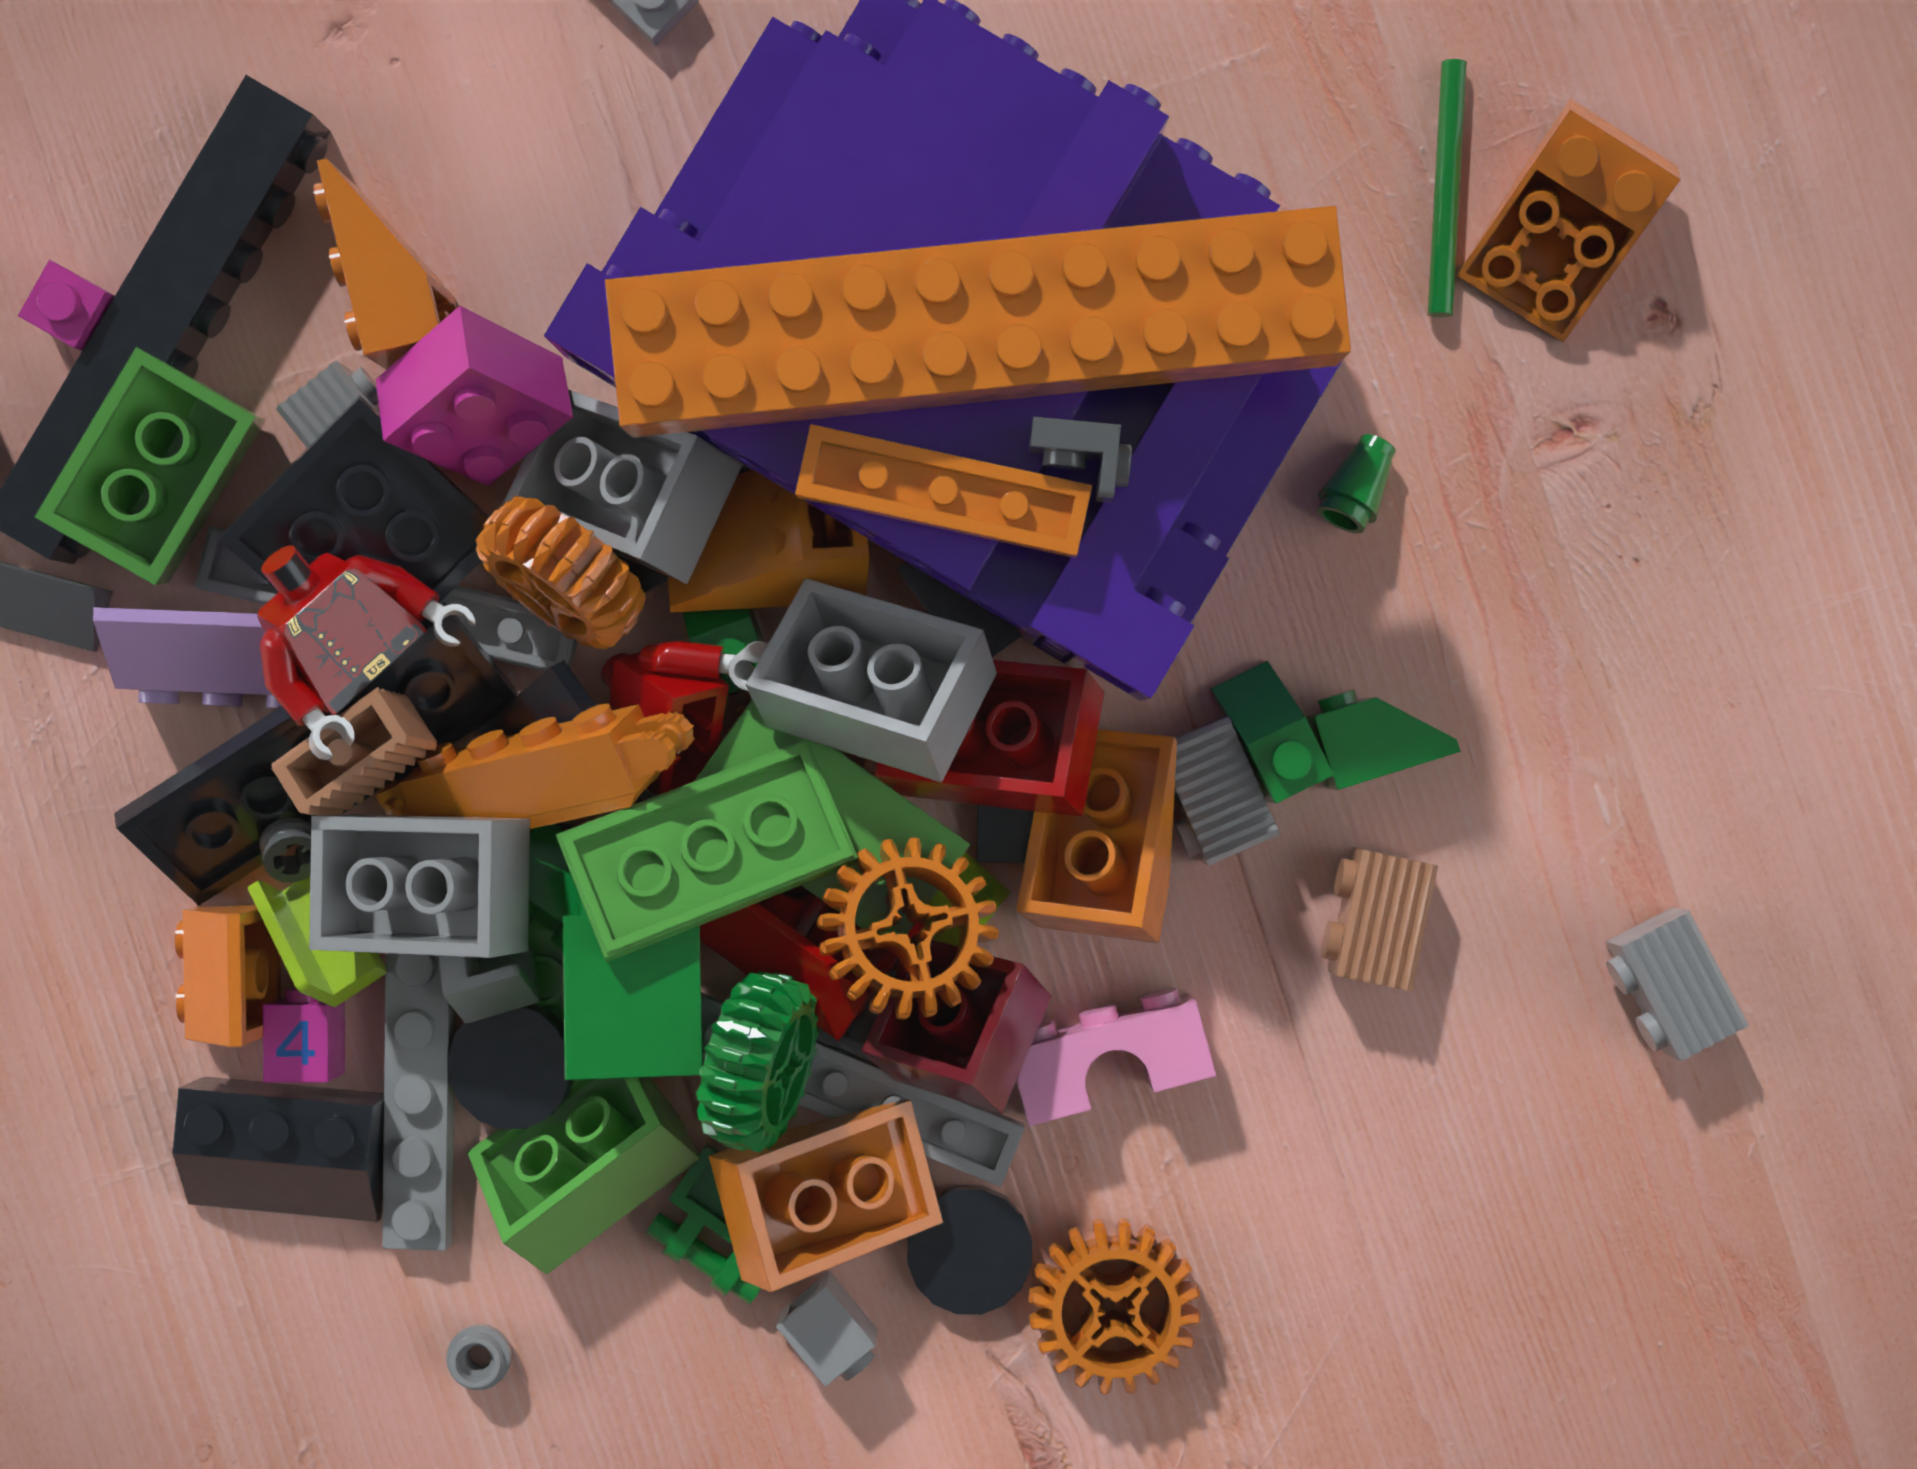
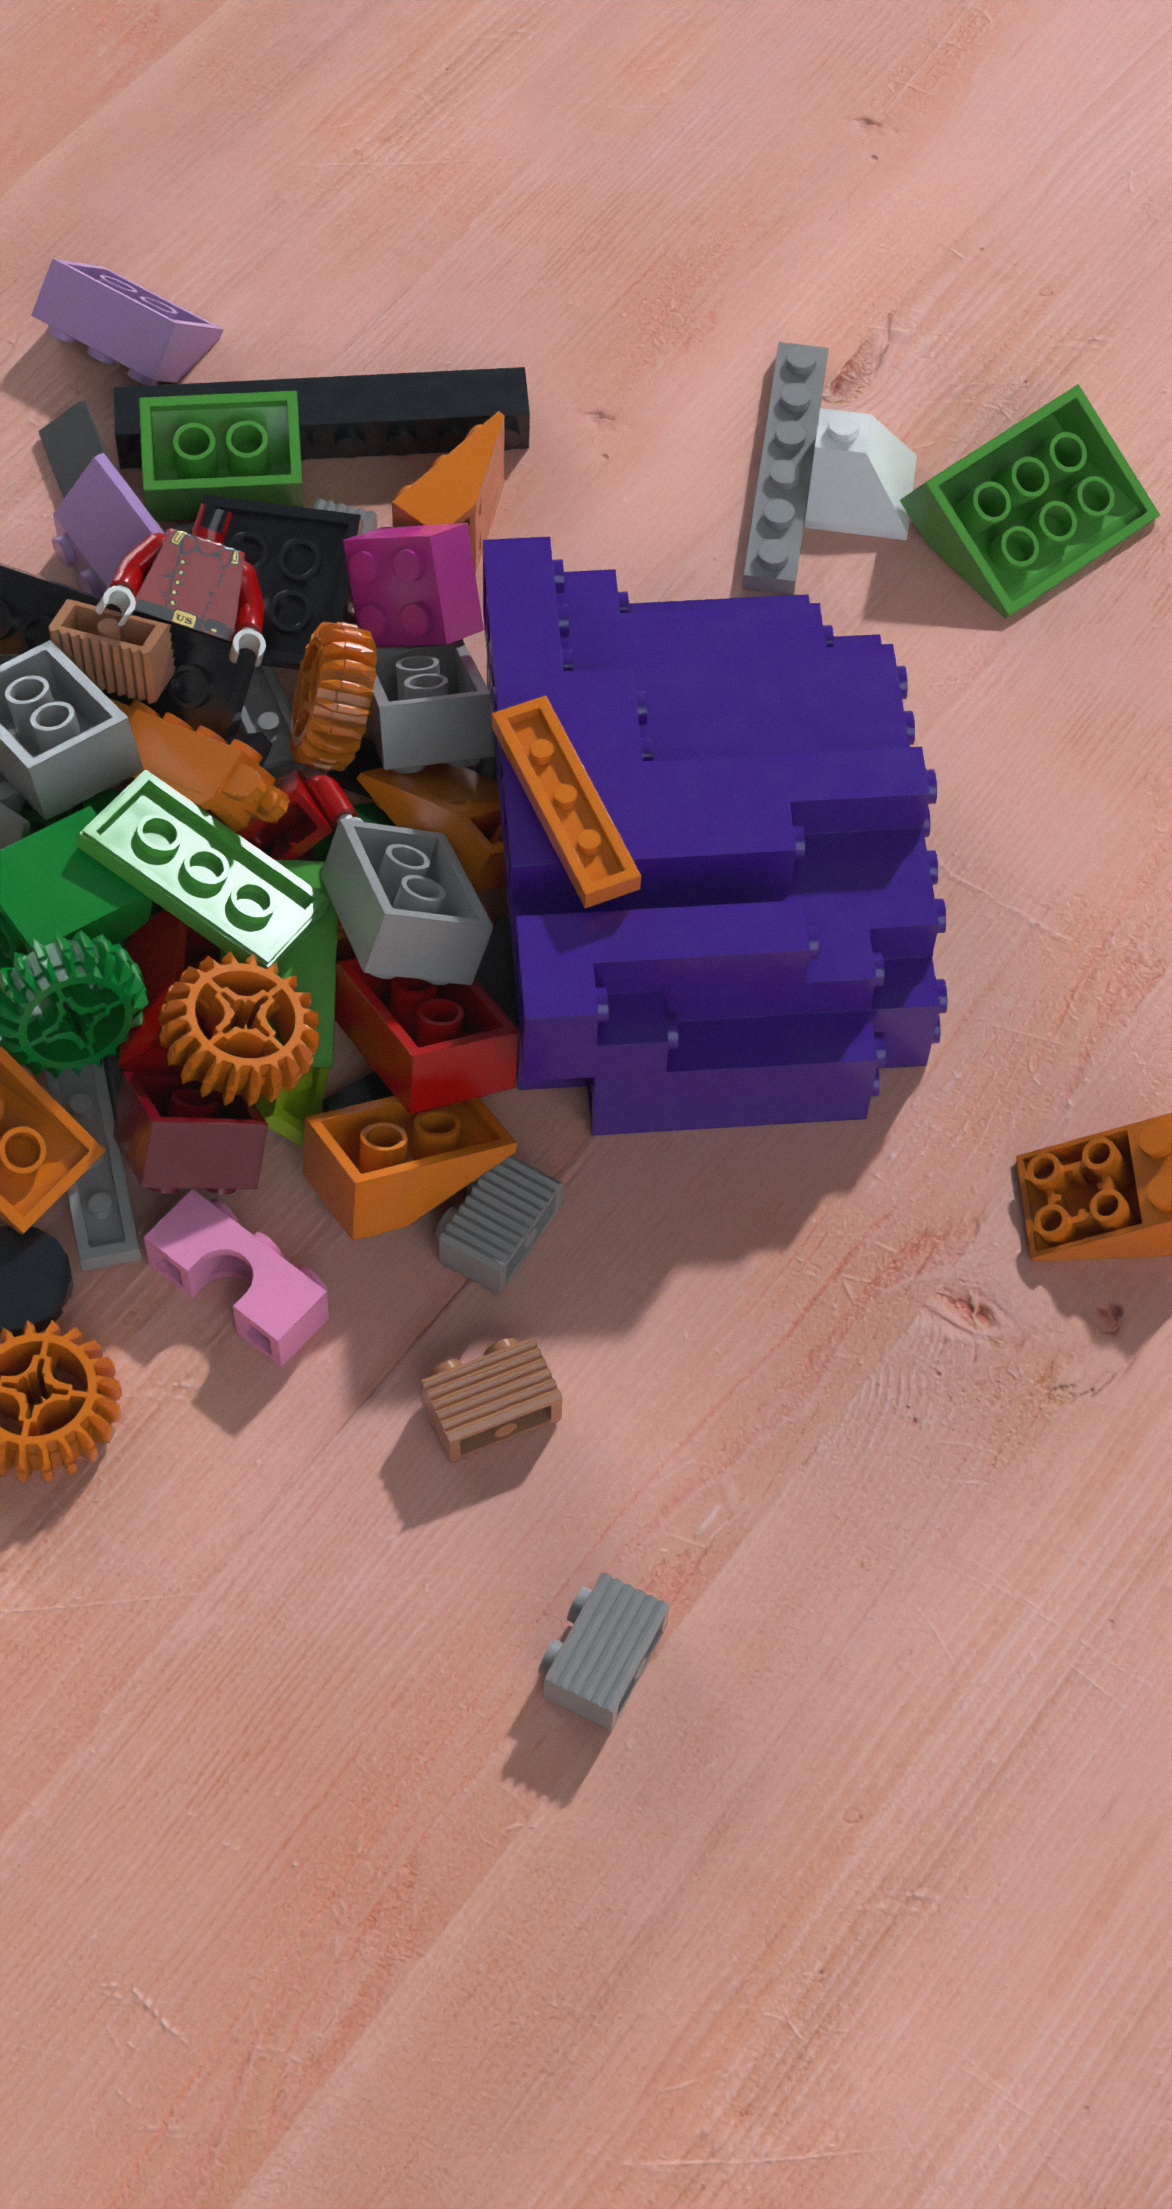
camera: 60 degrees right, 30 degrees down
(66, 305) = (293, 354): dark pink brick -> none
(978, 321) = (700, 755): orange brick -> none
(1071, 442) = (663, 860): dark grey bracket -> none
(1272, 733) = (569, 1239): green slope -> none
(1357, 486) = (805, 1177): green cone -> none
(1373, 739) = (621, 1305): green slope -> none
(1447, 188) = (1069, 1109): green bar -> none

